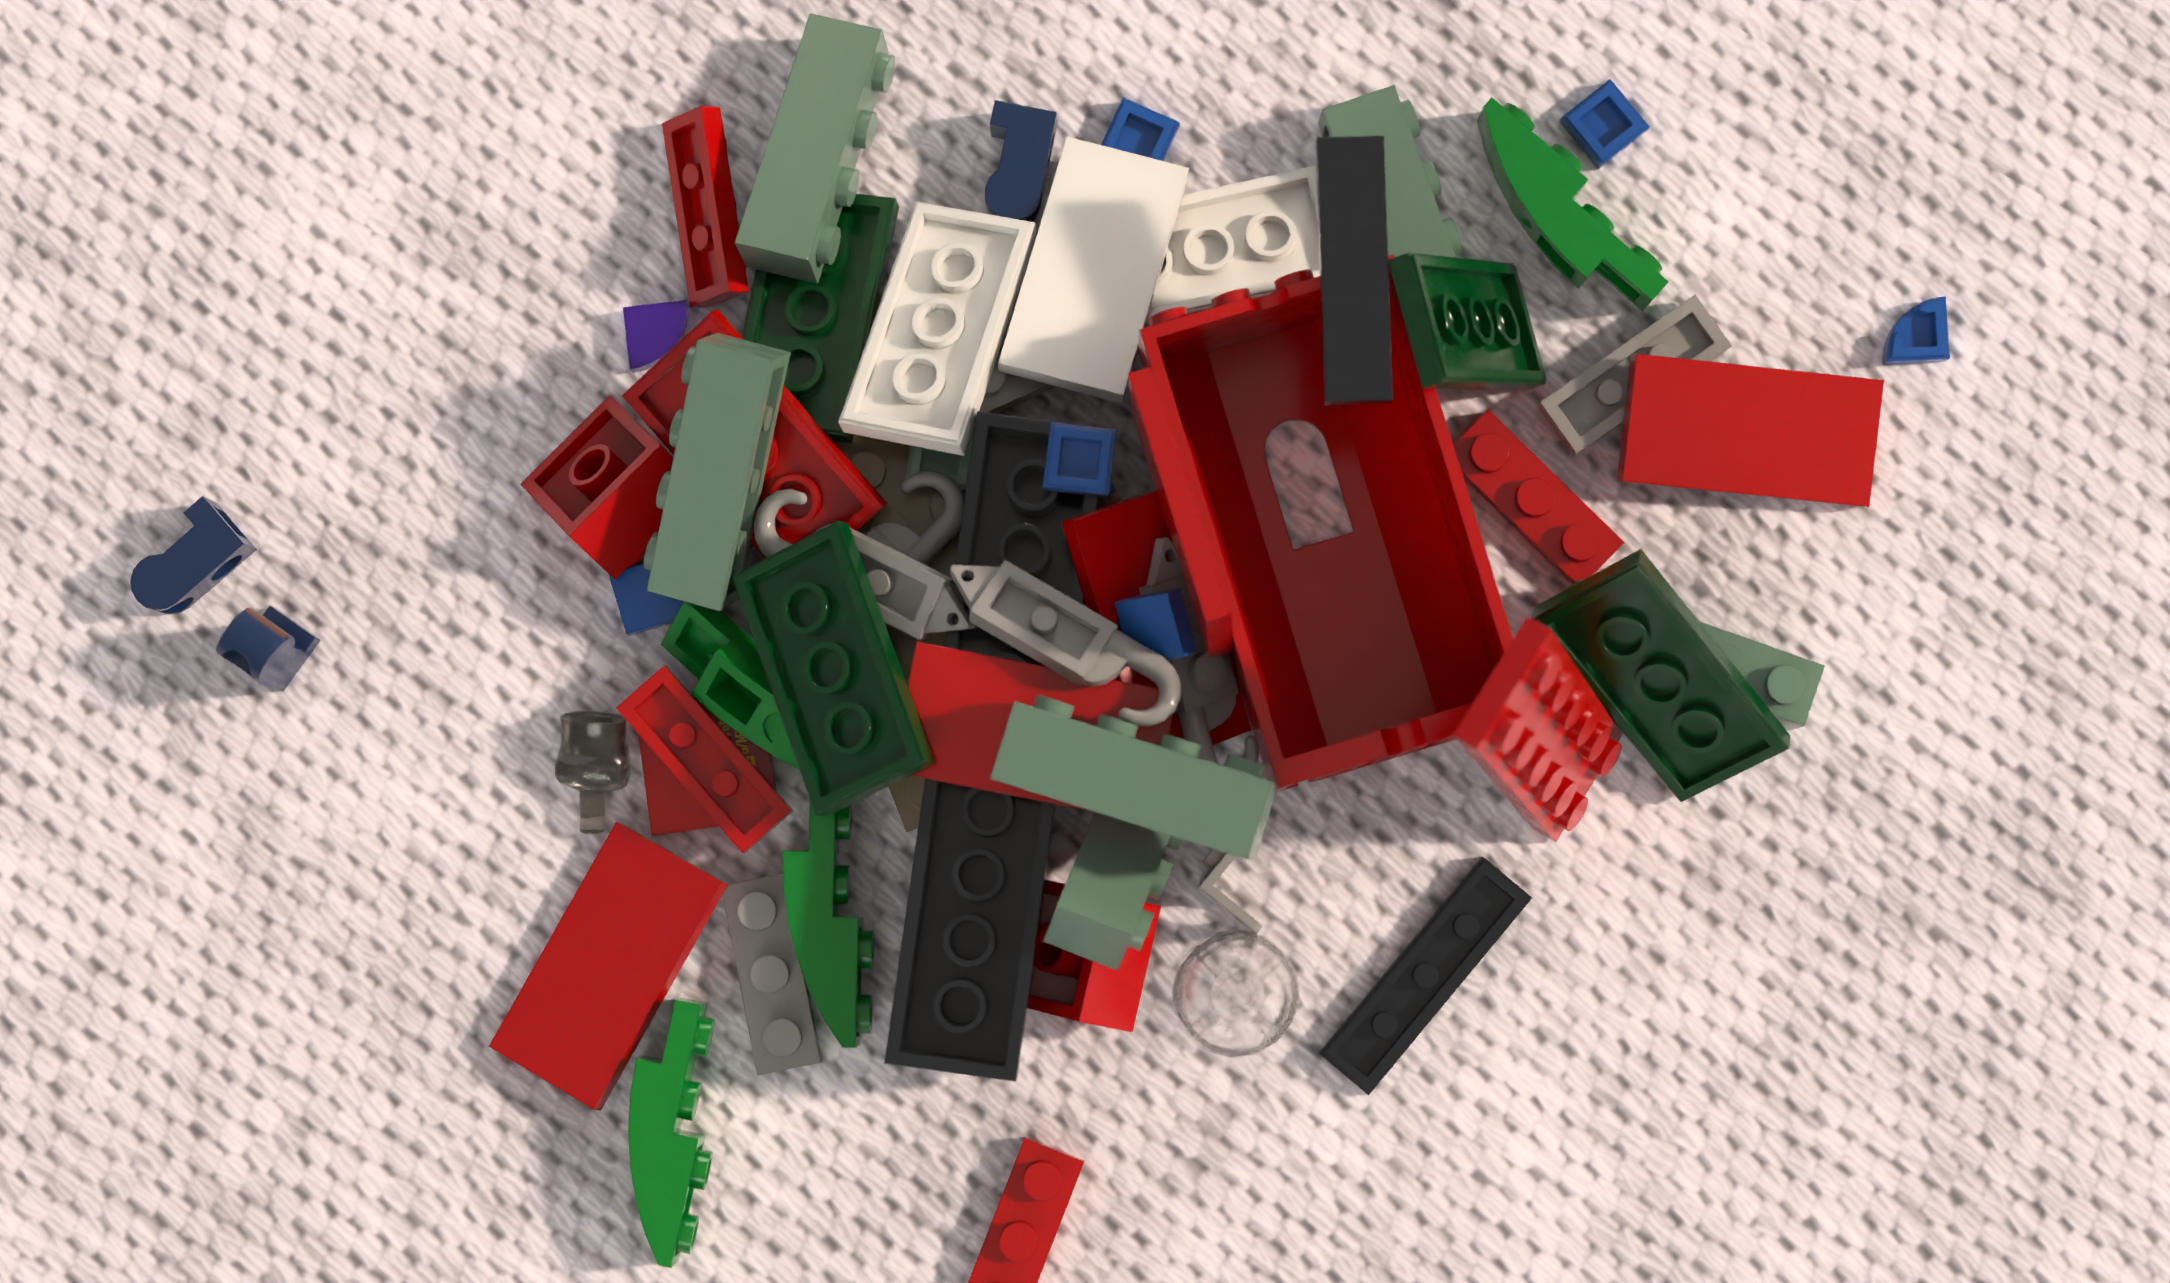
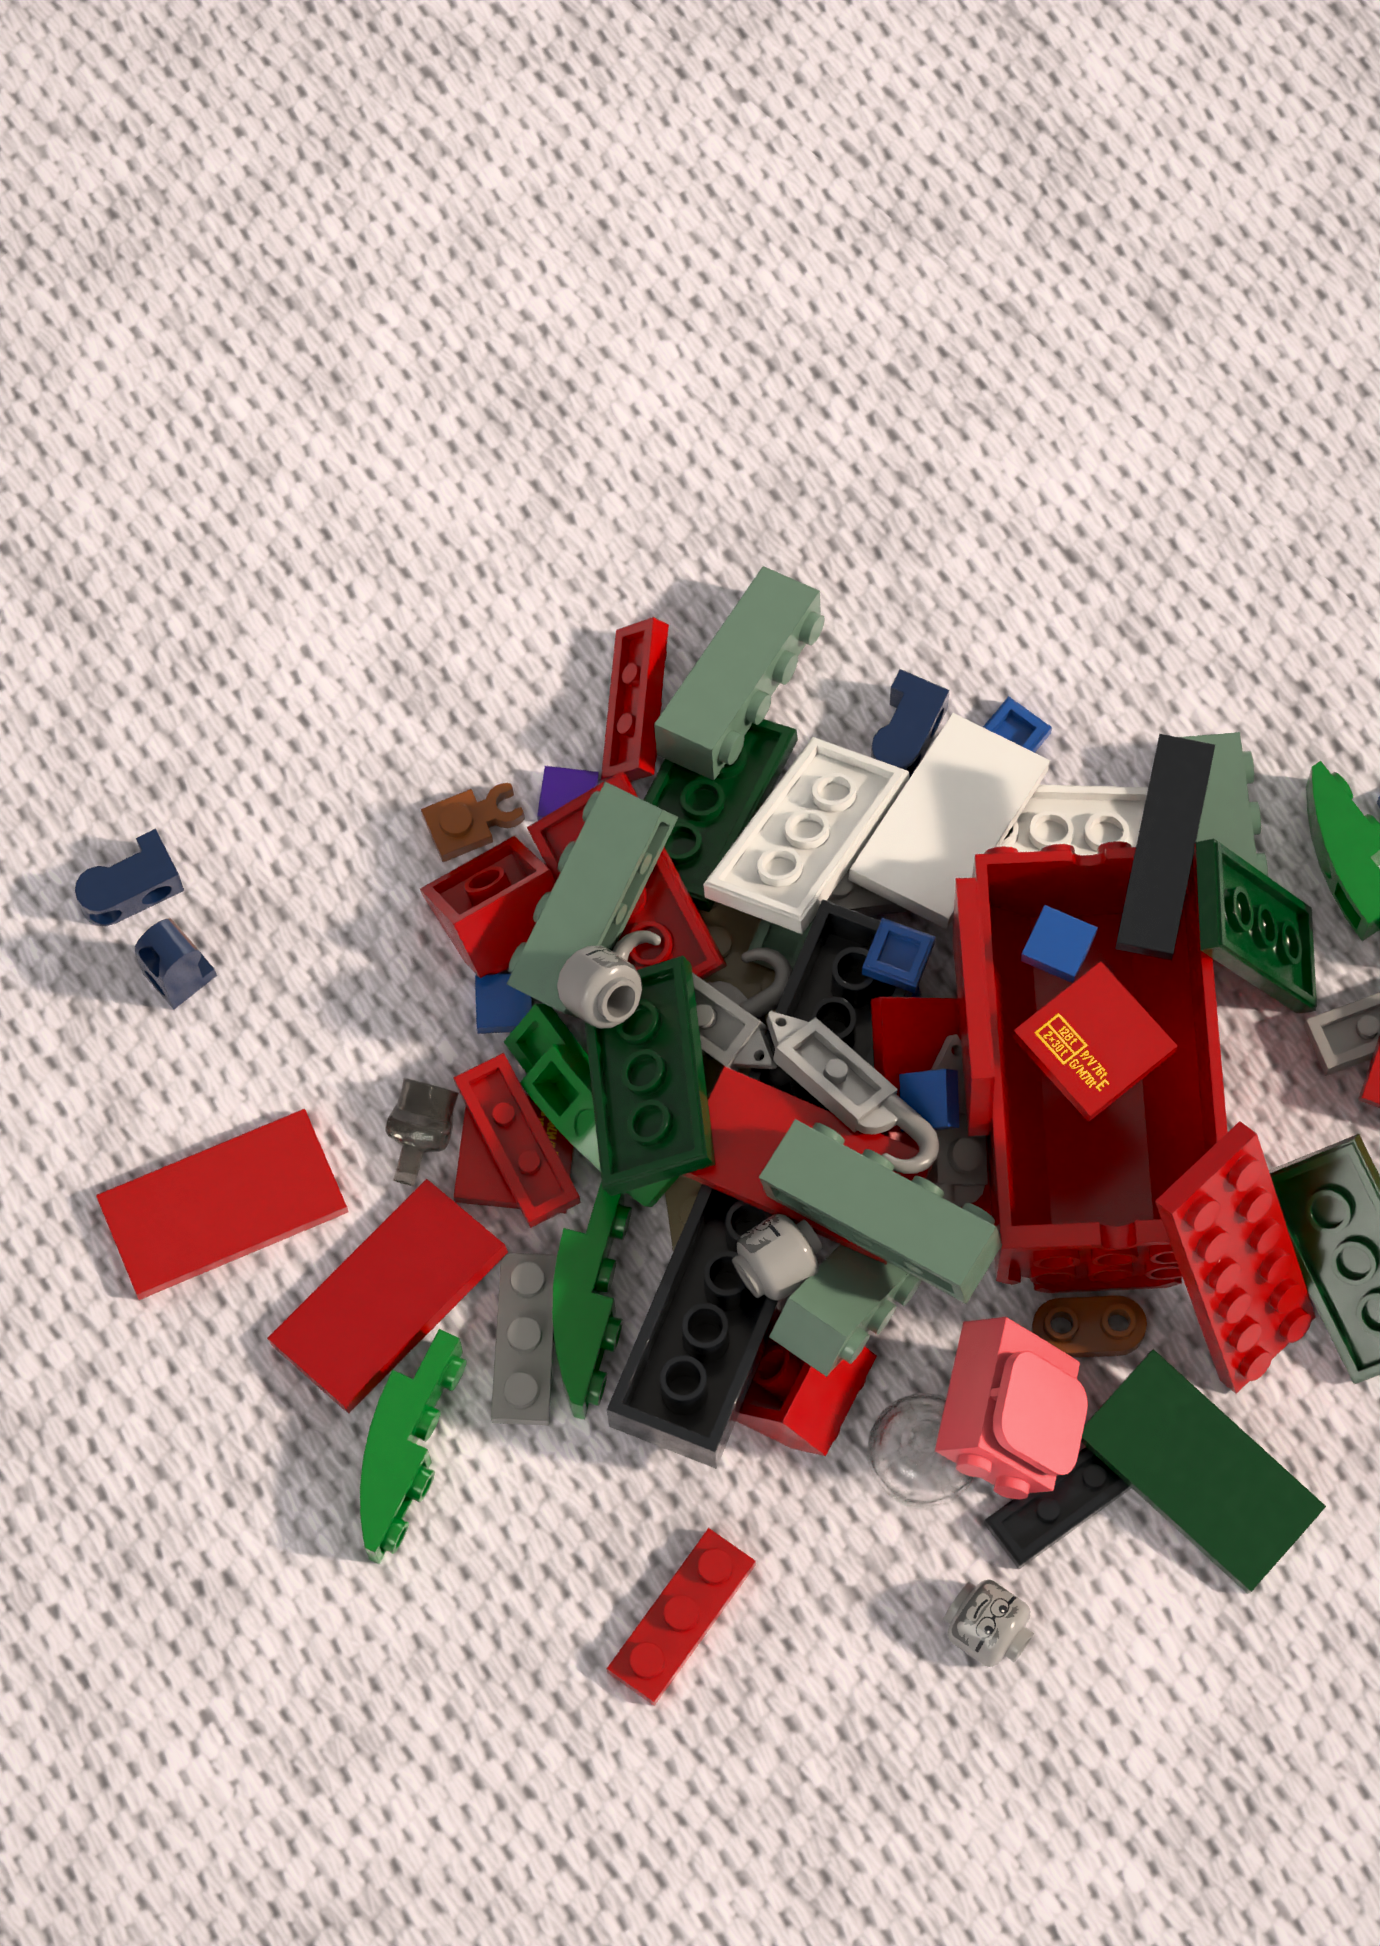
camera: 15 degrees right, 15 degrees down
(397, 904) = (222, 1204): none -> red tile
(547, 397) = (464, 824): none -> dark orange plate
(753, 582) = (599, 986): none -> light grey head
(1031, 851) = (777, 1256): none -> light grey head
(1218, 862) = (937, 1334): light grey bracket -> none
(1260, 417) = (1058, 944): none -> blue tile
(1324, 938) = (1012, 1409): none -> coral brick
(1327, 523) = (1094, 1041): none -> red tile
(1351, 1168) = (988, 1623): none -> light grey head
(1381, 807) = (1090, 1328): none -> dark orange plate
(1534, 499) = (1276, 1092): red plate -> none
(1538, 944) = (1200, 1471): none -> dark green tile

